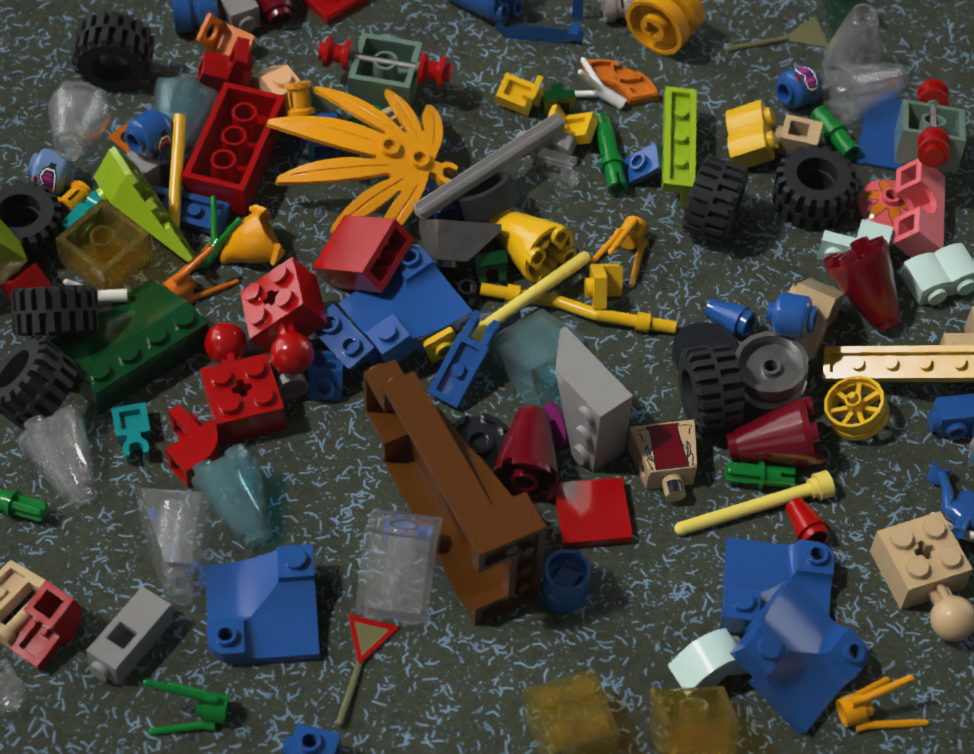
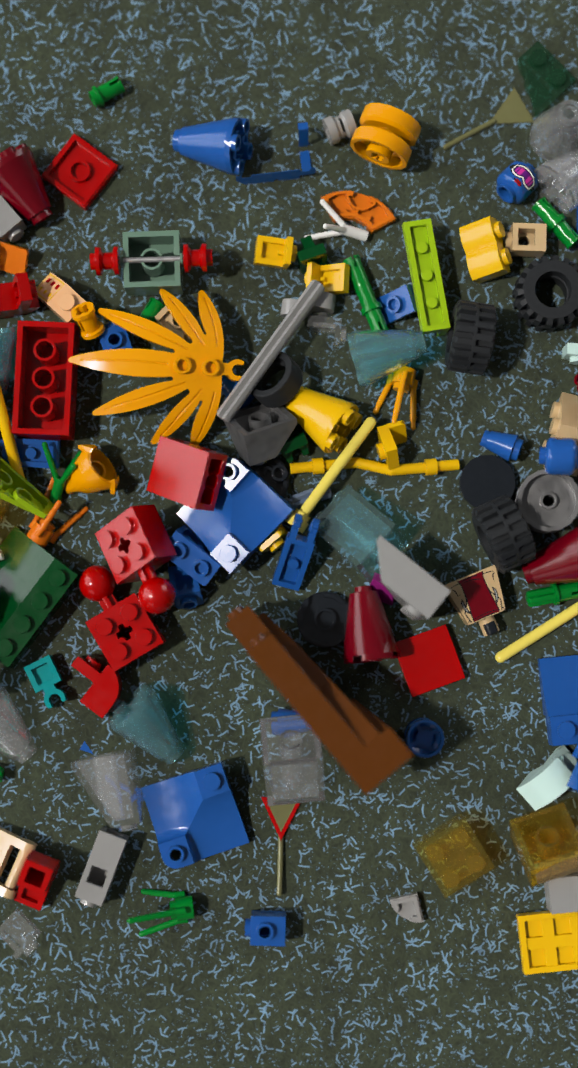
camera: 10 degrees left, 30 degrees up
(616, 194) = (383, 352): none -> clear light blue cone

